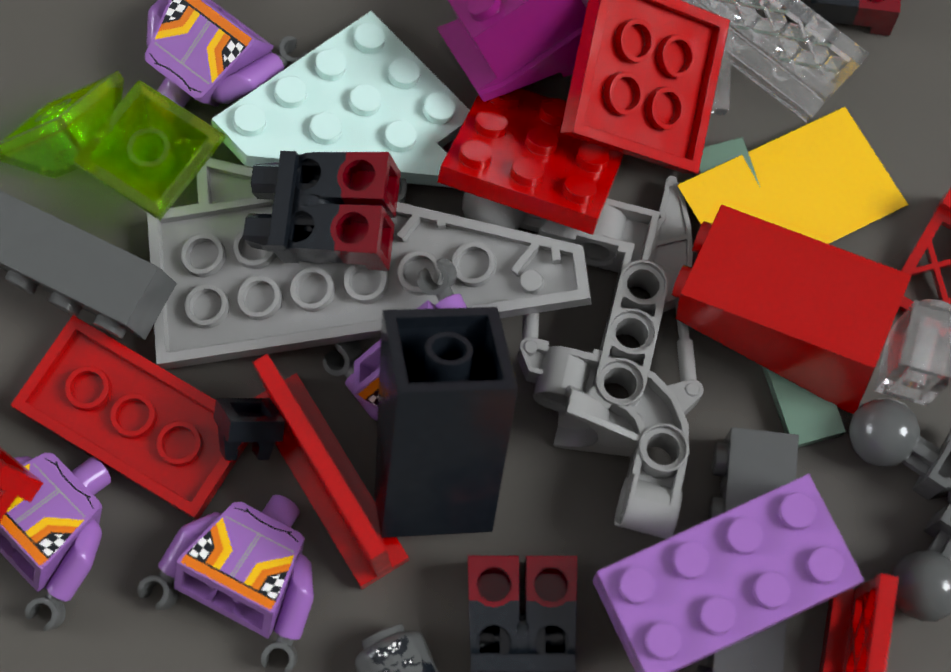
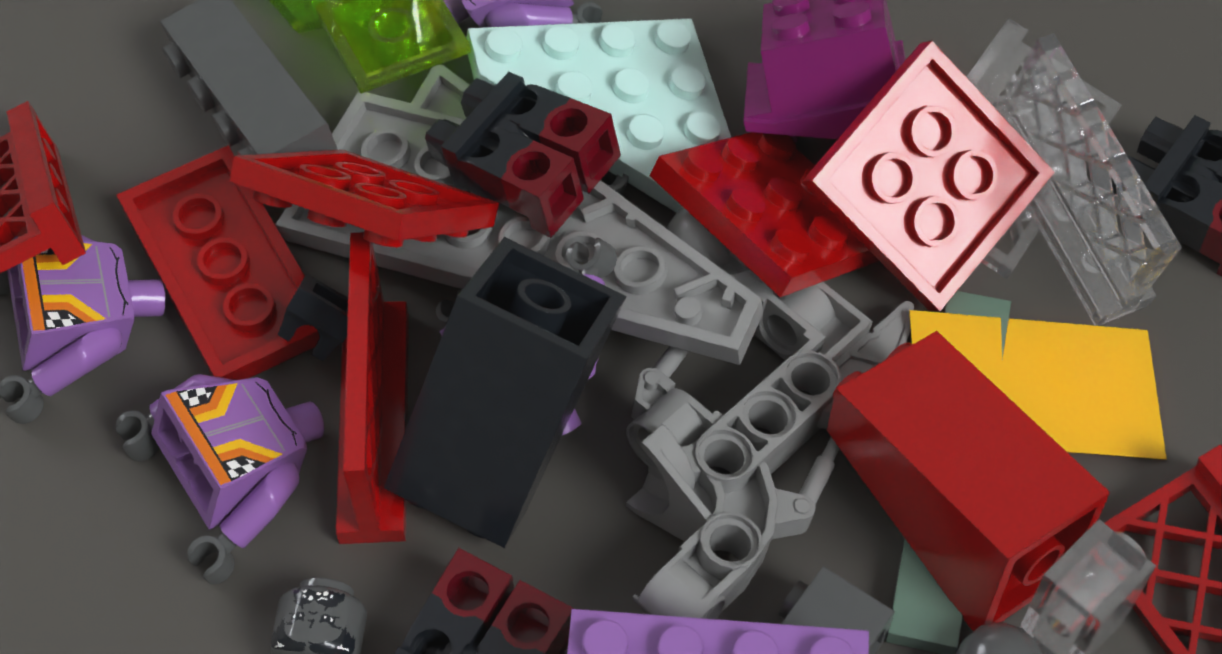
camera: 30 degrees right, 15 degrees down
(236, 320) = (363, 193): none -> red plate

